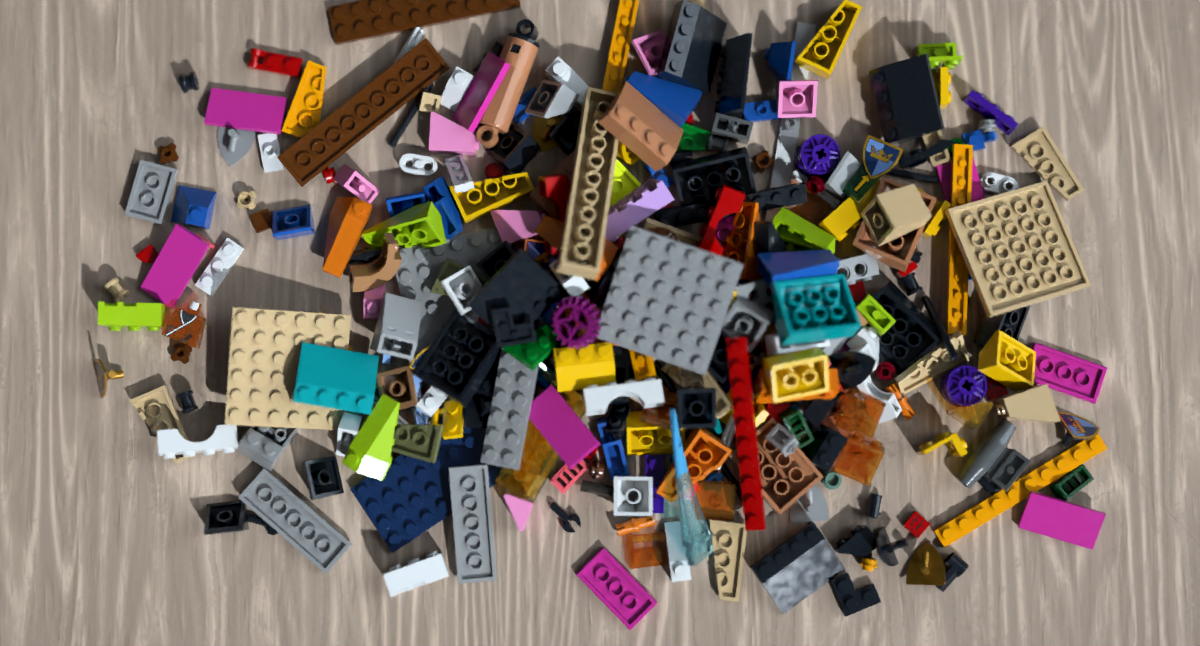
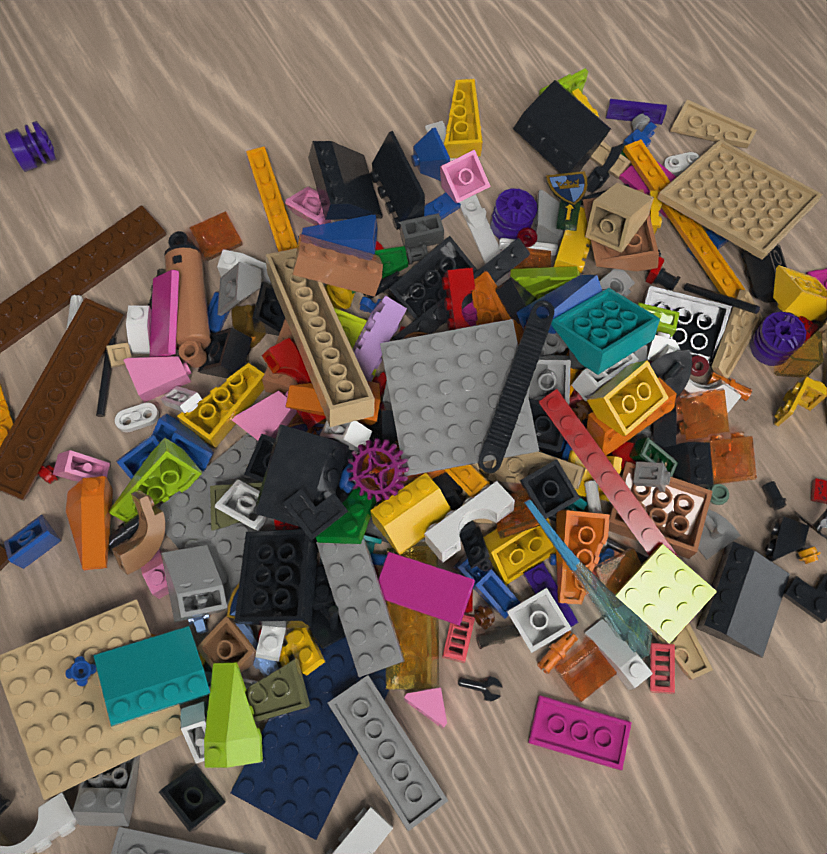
camera: 25 degrees left, 15 degrees down
(289, 344) = (73, 672): none -> blue plate
(494, 170) = (215, 381): red plate -> none
(561, 33) = (215, 235): none -> clear orange tile
(697, 575) = (660, 688): none -> coral slope
(714, 319) = (516, 386): none -> black gear
(736, 530) = (665, 593): none -> plate
(764, 155) = (468, 243): reddish brown plate -> none

